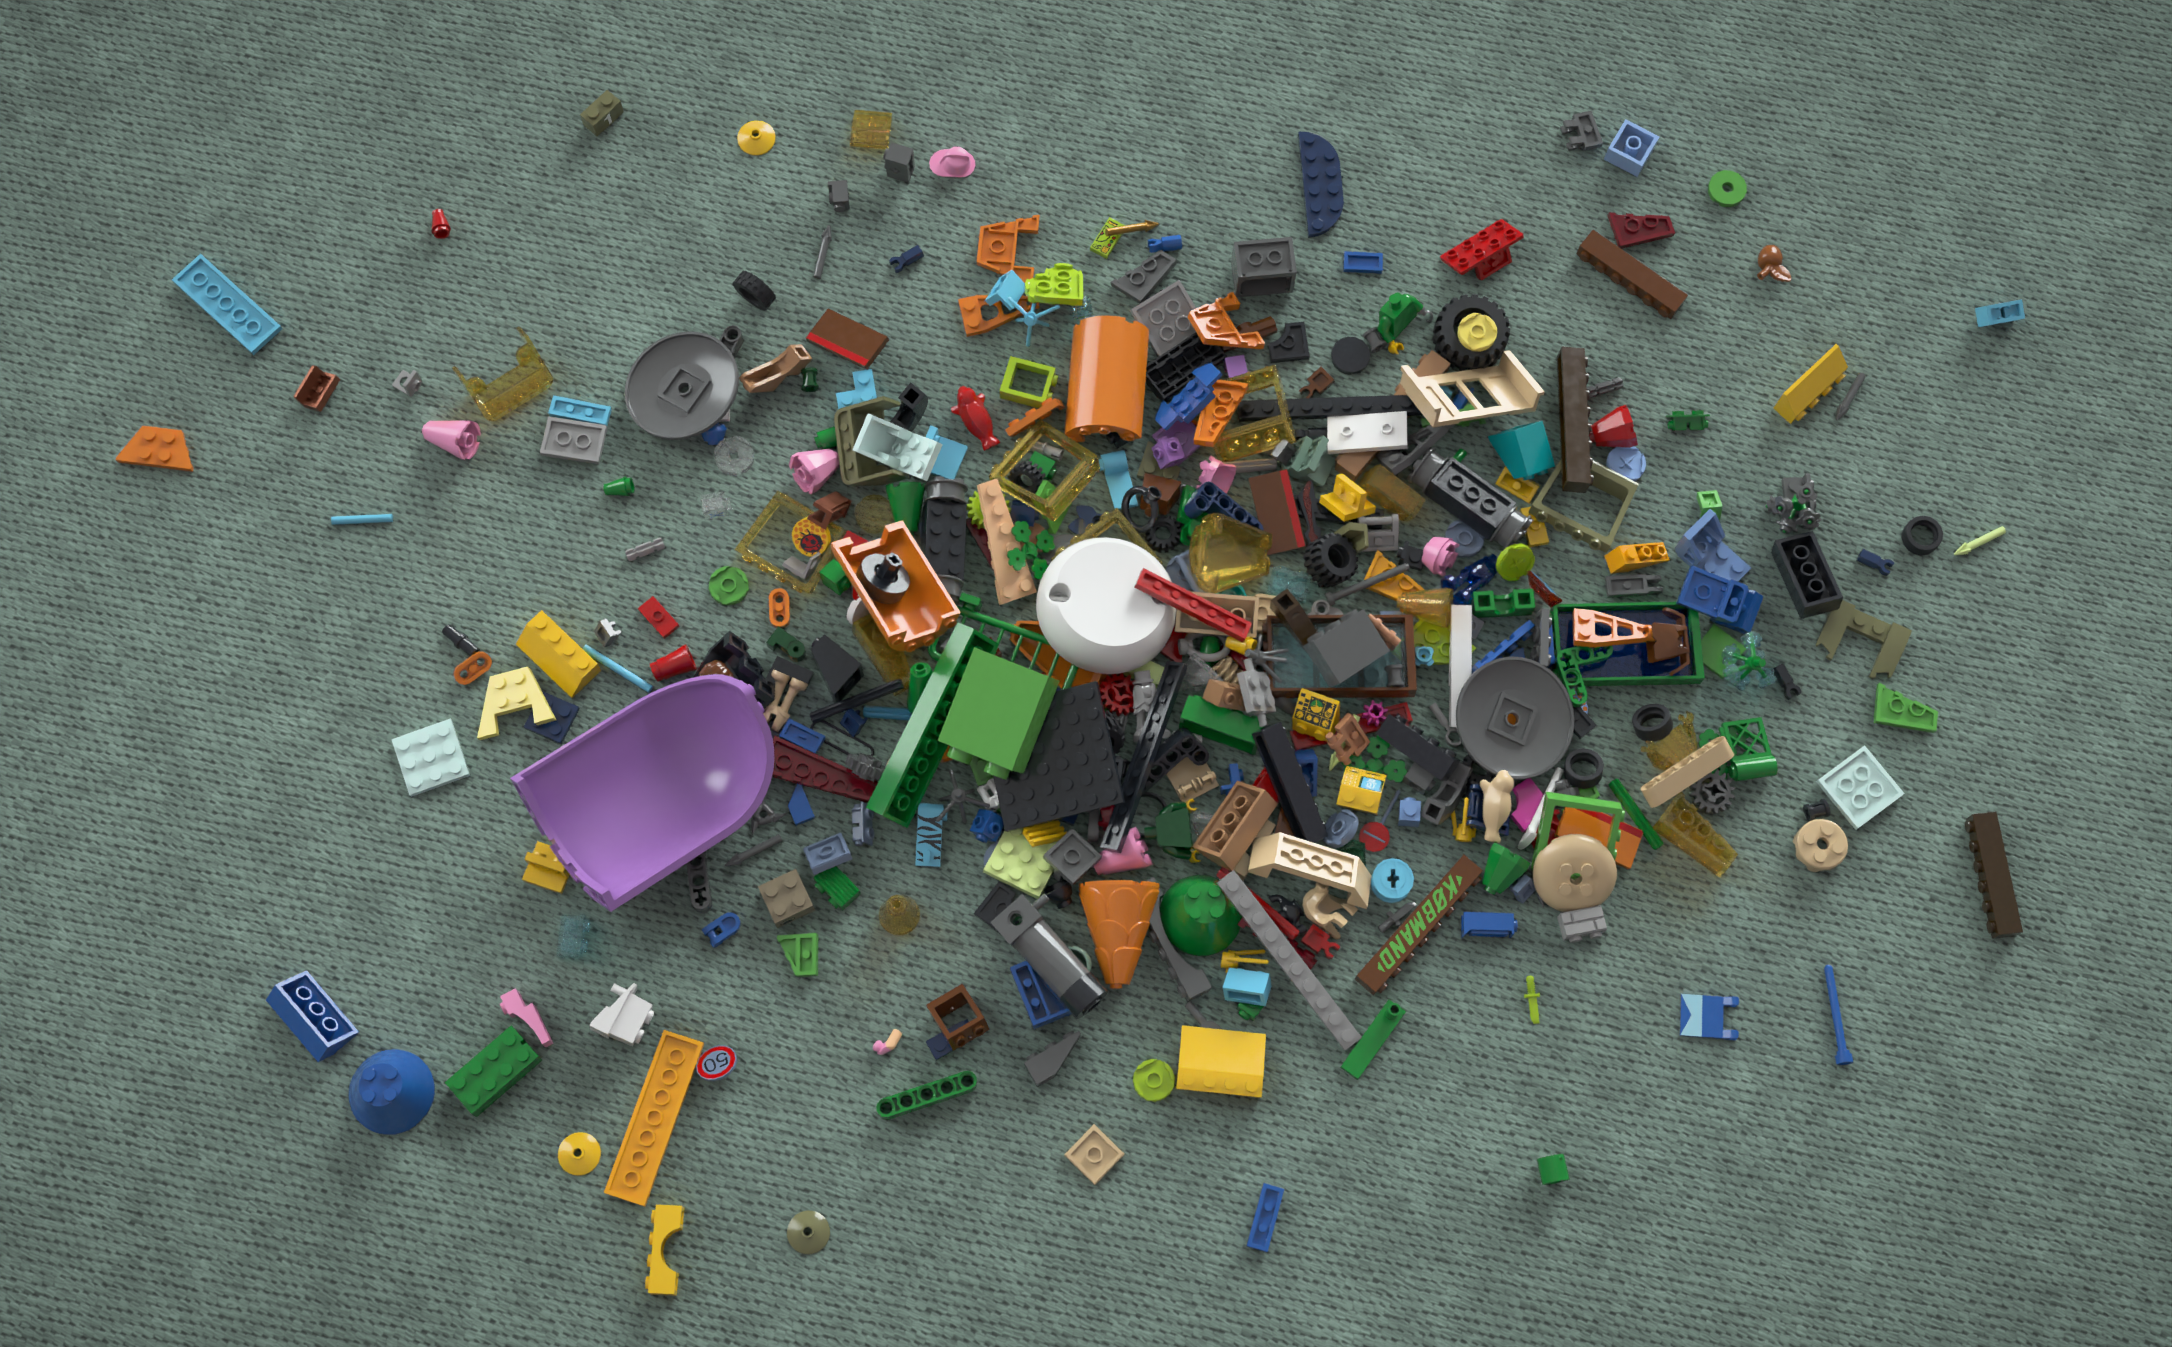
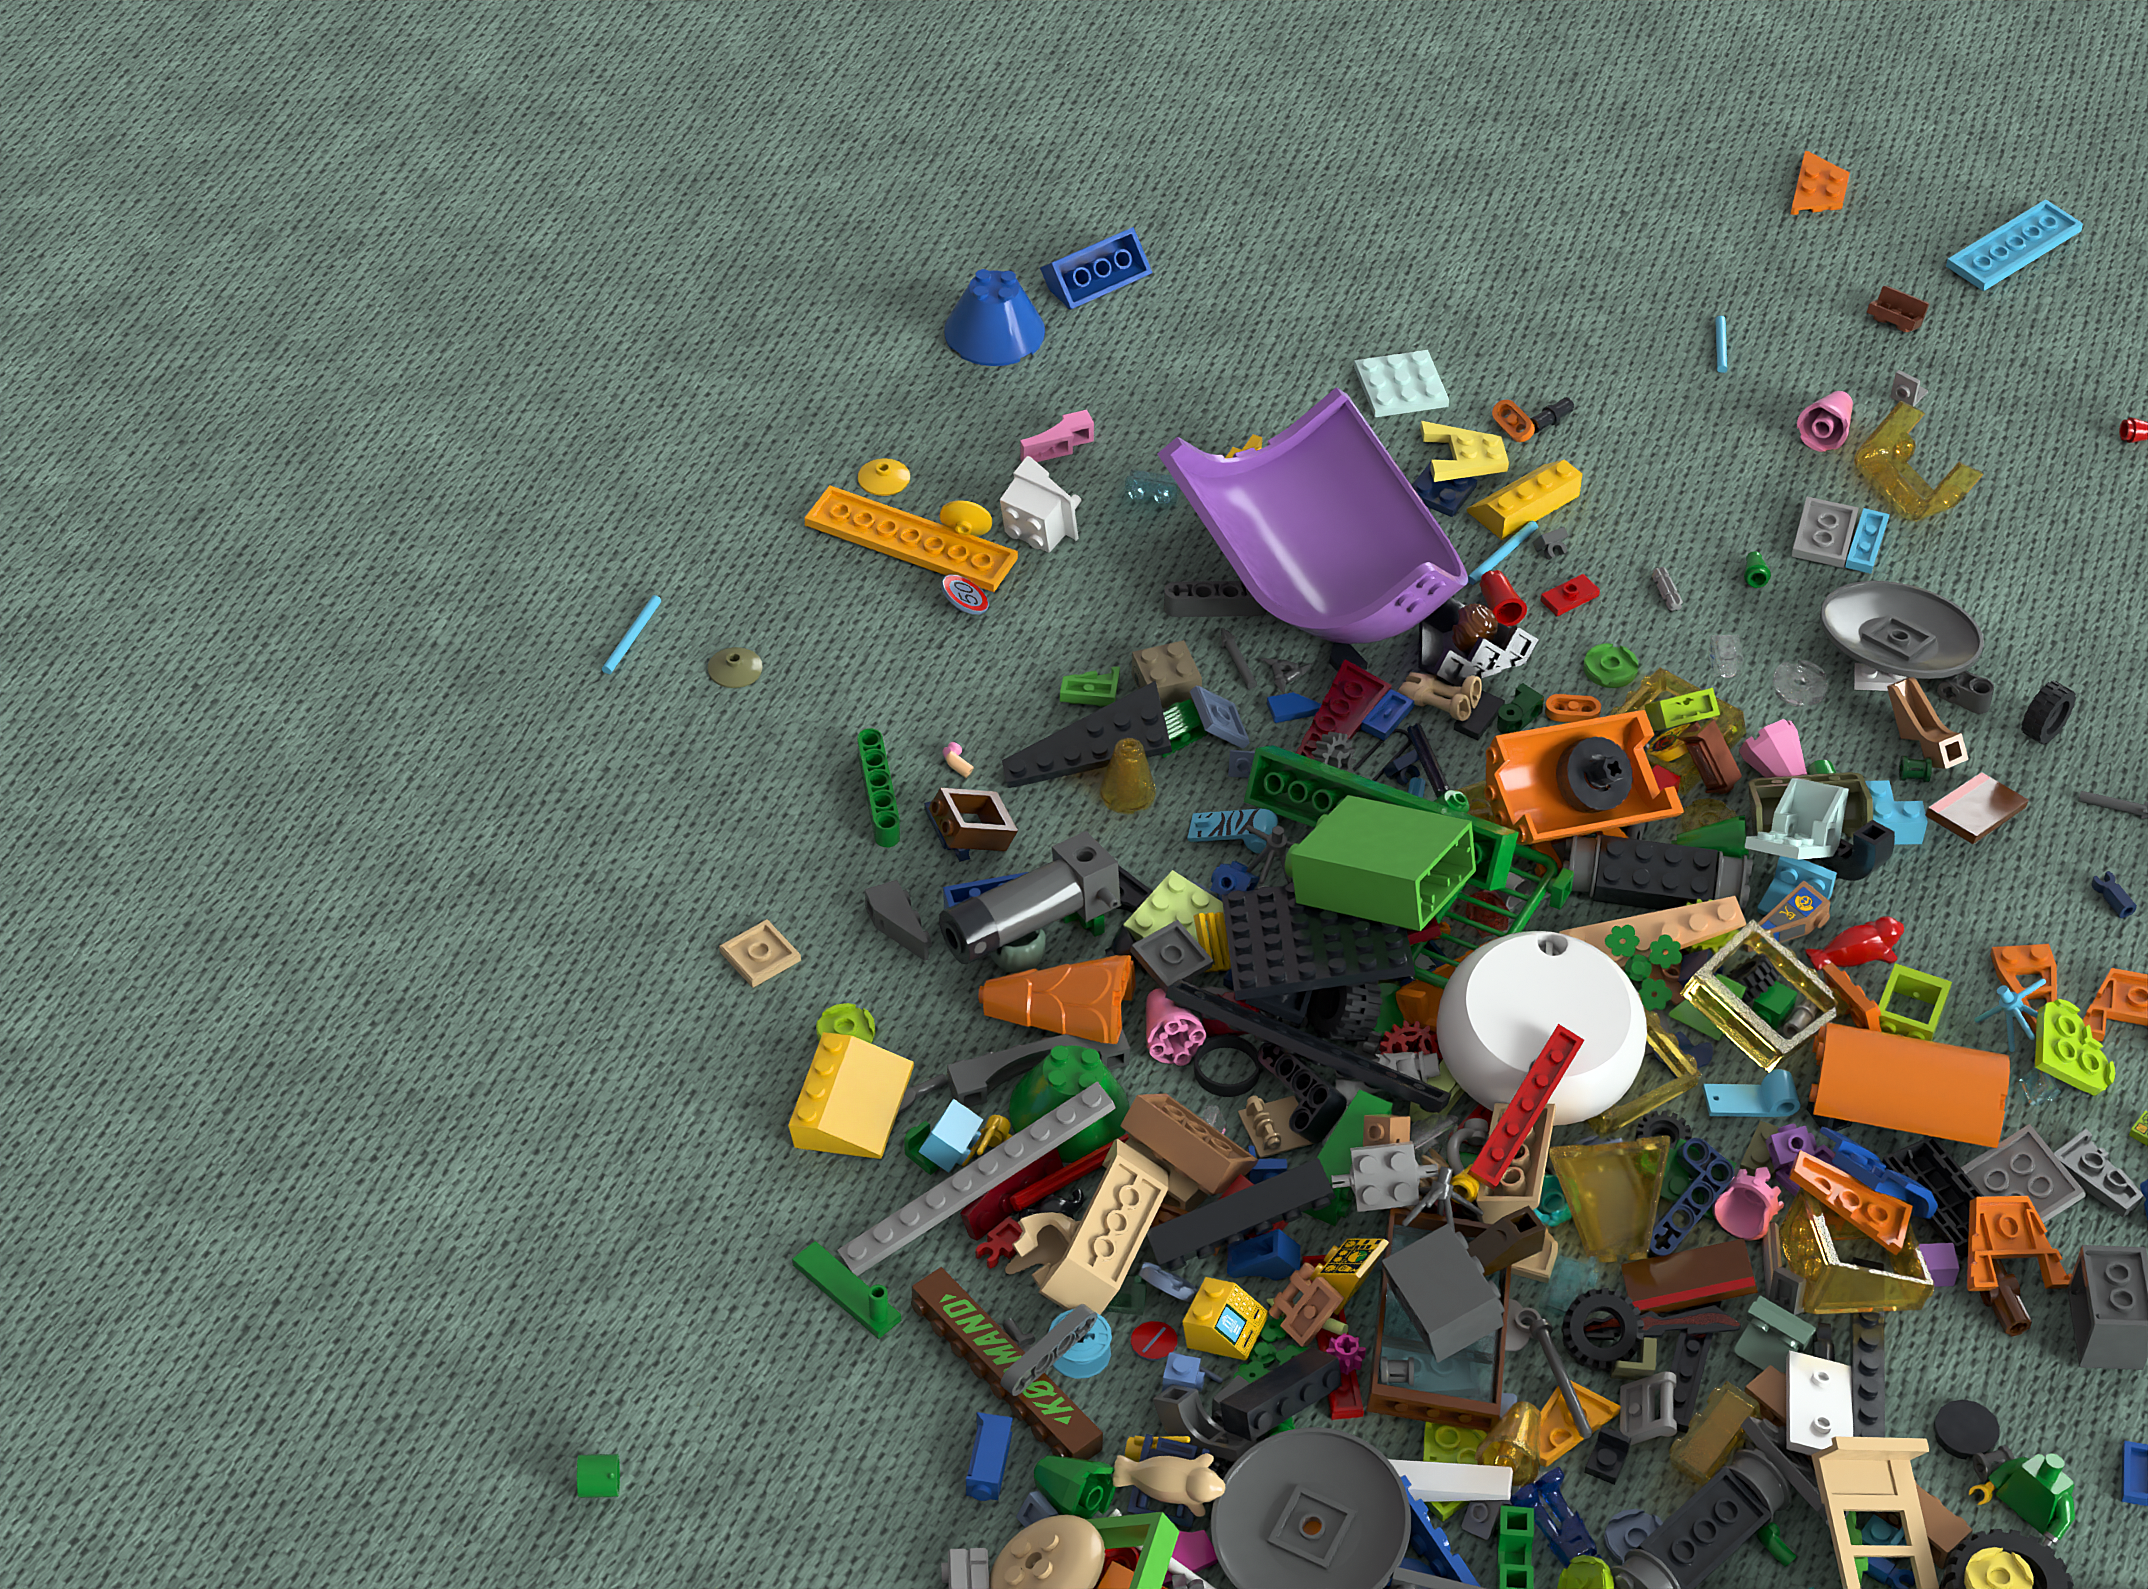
camera: 100 degrees right, 25 degrees down
(493, 1071) = (997, 404): green piece -> none
(643, 1073) = (966, 518): none -> yellow dish
(667, 1221) = (717, 527): yellow arch -> none
(714, 434) = (1834, 662): blue cone -> none
(729, 925) = (1138, 618): blue plate -> none
(783, 1321) = (631, 634): none -> medium azure bar
(800, 526) = (1682, 709): none -> lime window
(836, 667) = (1463, 741): black slope -> none
(861, 932) = (1092, 740): none -> black wing
(966, 455) = (1796, 914): none -> slope
(1007, 286) = (2061, 987): medium azure panel -> none
(1151, 496) = (1697, 1098): black piece -> none
(1169, 489) = (1722, 1127): reddish brown torso -> none
(1174, 831) = (1197, 1078): dark green torso -> none
(1265, 1217) = (625, 1122): blue plate -> none
(1291, 345) = (1983, 1352): black tile -> none
(1318, 381) = (1916, 1374): reddish brown plate -> none
(1347, 500) = (1699, 1364): yellow bracket -> none
(1388, 636) = (1468, 1352): nougat plate -> none
(1415, 893) = (1048, 1349): none -> dark grey beam
(1427, 651) = (1433, 1426): medium azure plate -> none
(1439, 554) = (1603, 1484): bright pink cone -> none
(1532, 998) = (863, 1504): lime piece -> none

